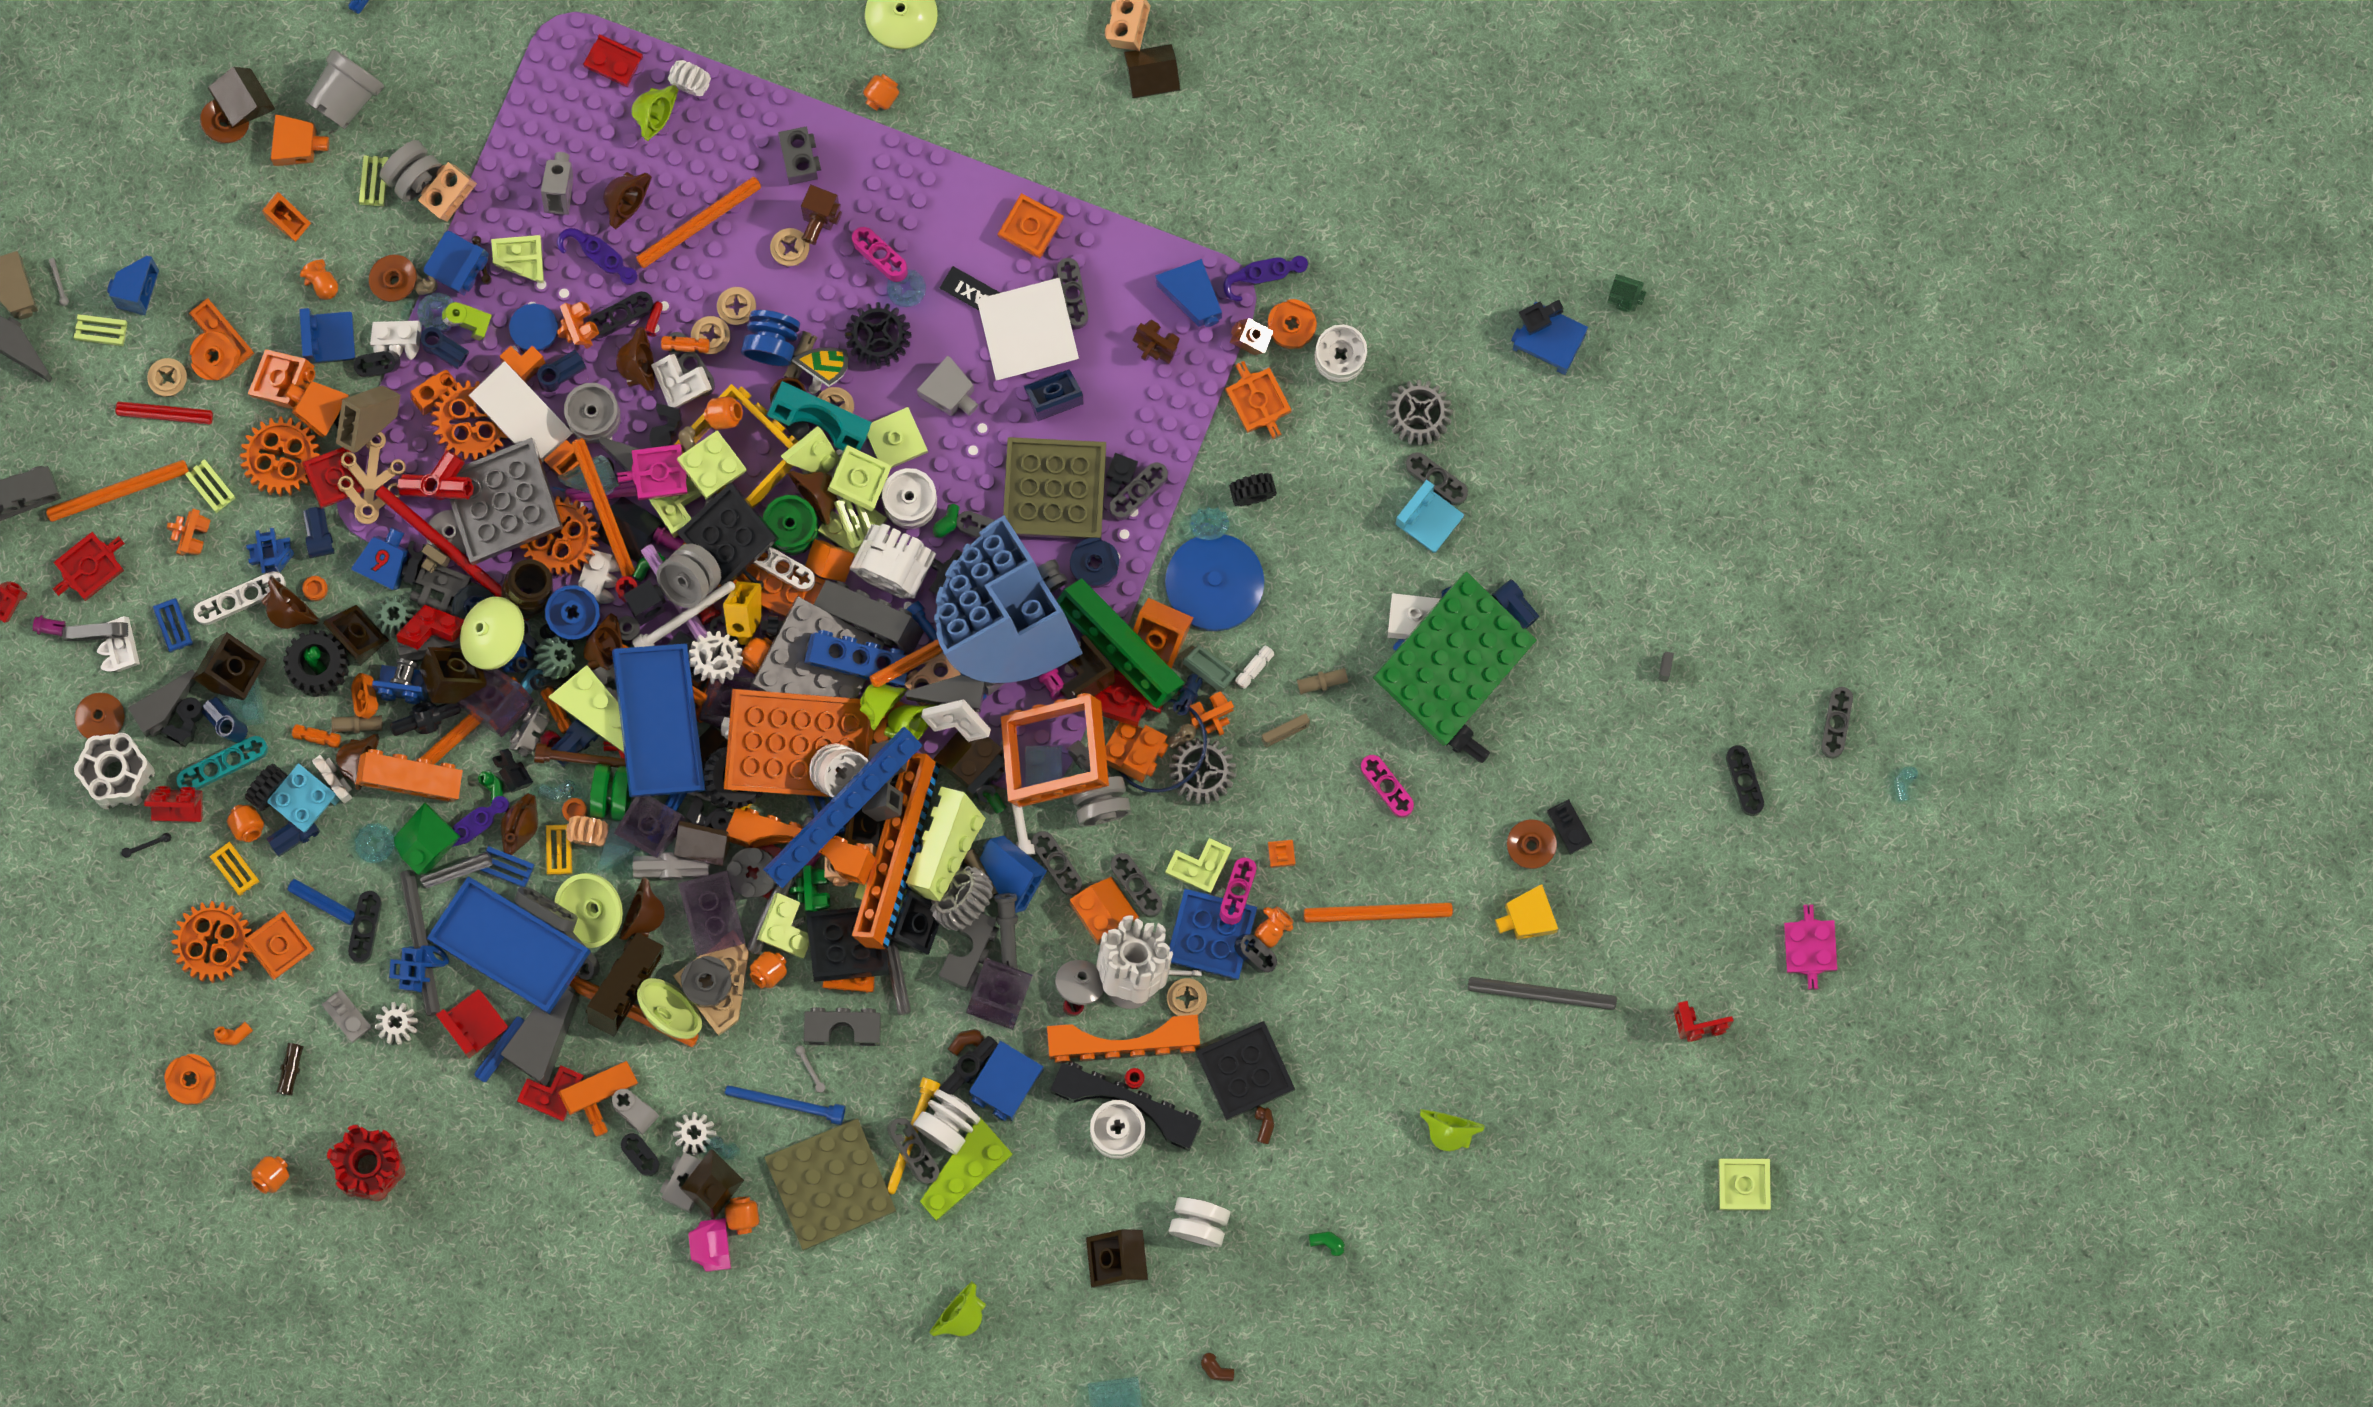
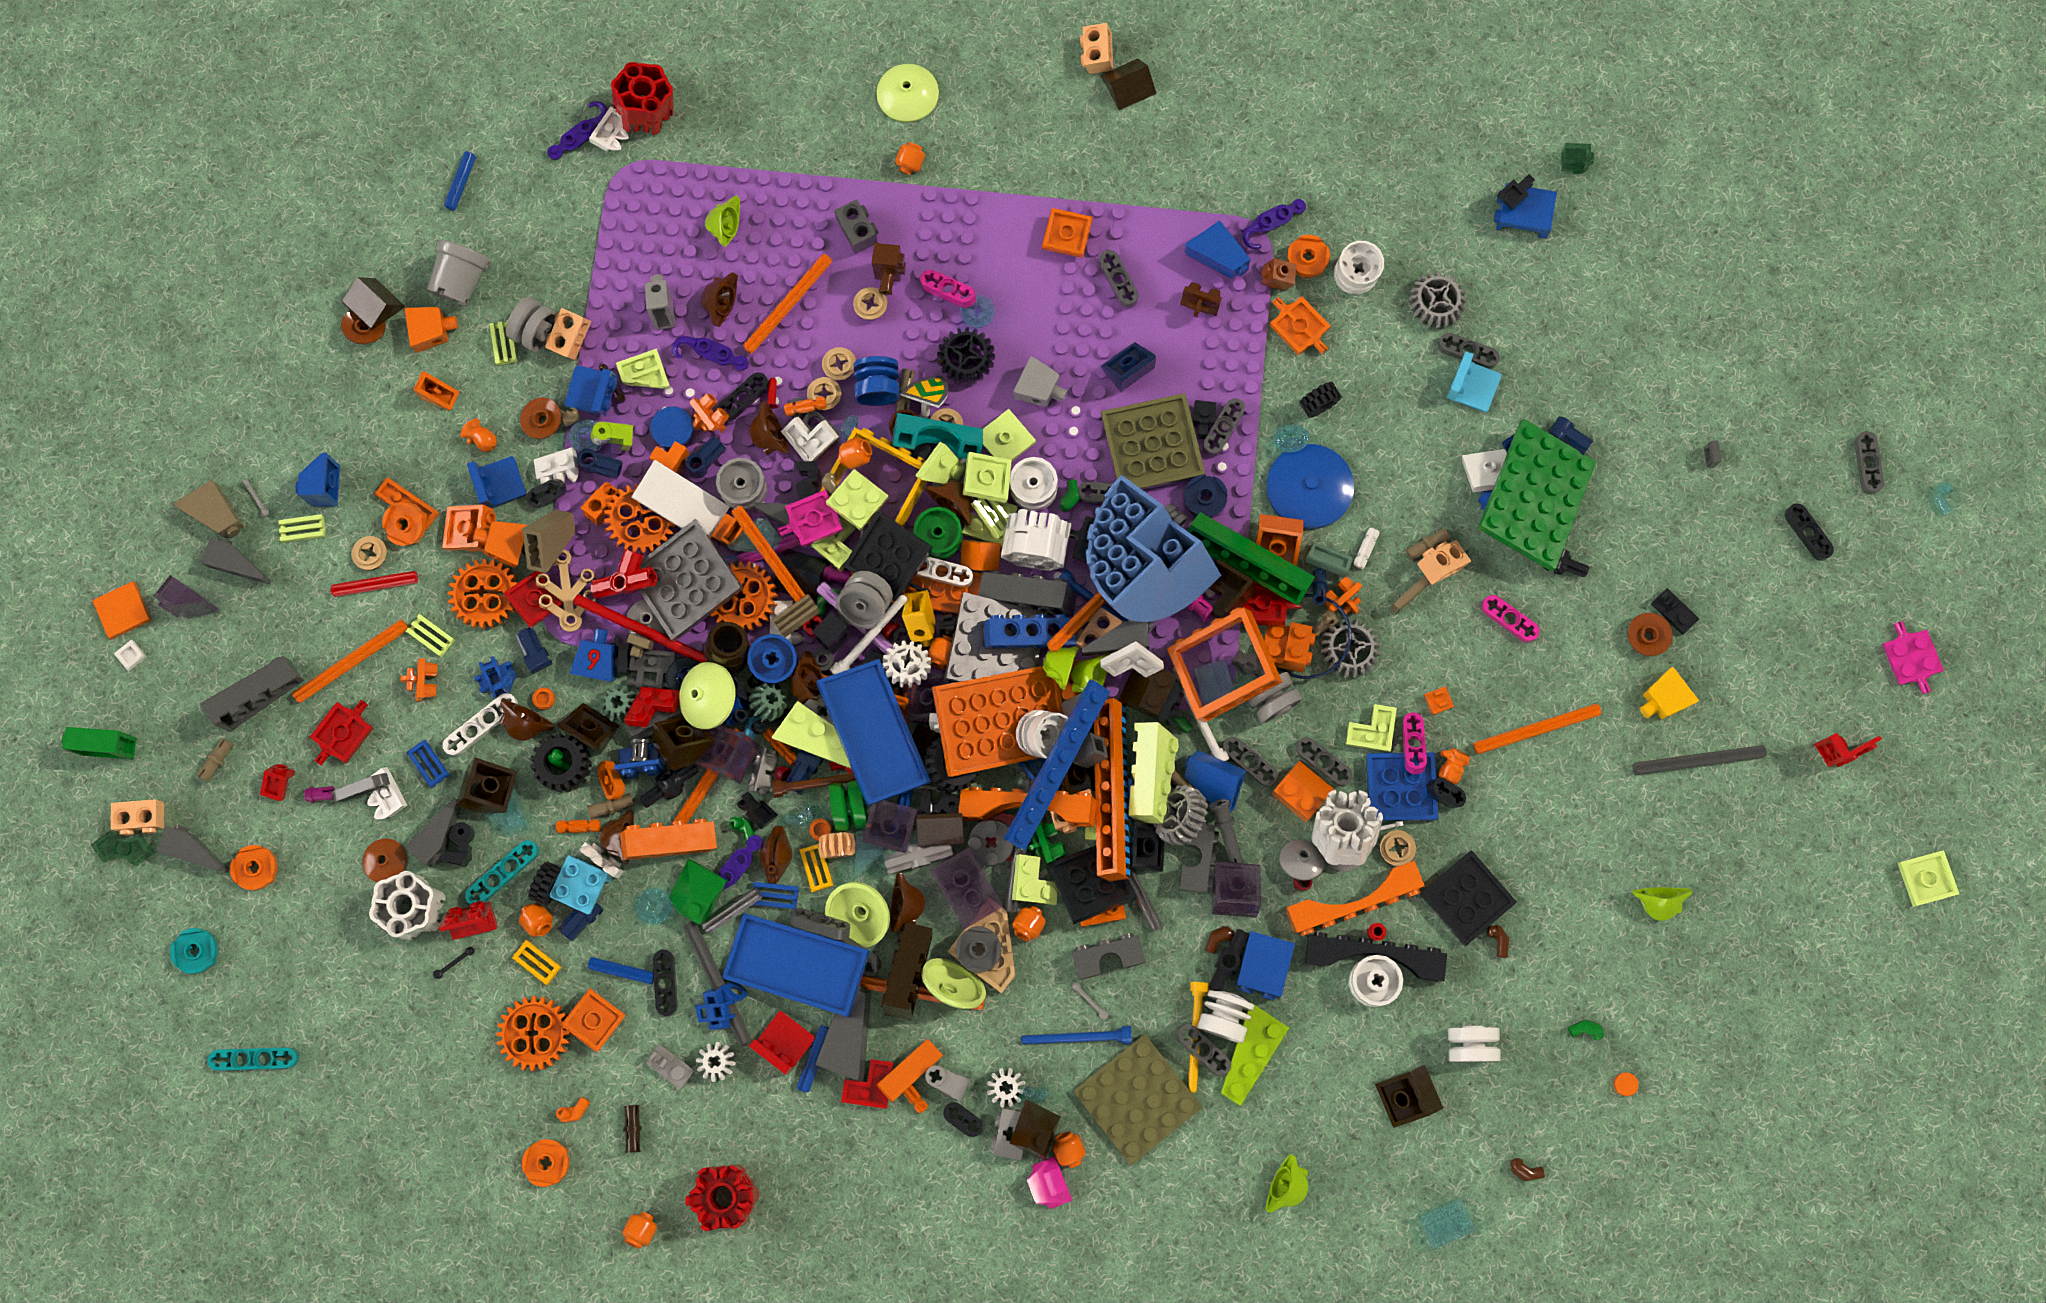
camera: 10 degrees left, 0 degrees up
(224, 721) = (493, 835): dark blue piece -> none
(610, 569) = (795, 613): none -> dark tan tile
(613, 60) = (678, 191): red plate -> none
(689, 78) = (746, 186): white gear -> none
(729, 377) = (848, 426): none -> clear light blue arm
(966, 287) = (1038, 301): black sticker -> none
(1027, 329) = (1090, 317): white sticker -> none
(1330, 704) = (1443, 561): none -> light nougat brick
(1350, 1309) = (1625, 1084): none -> orange tile

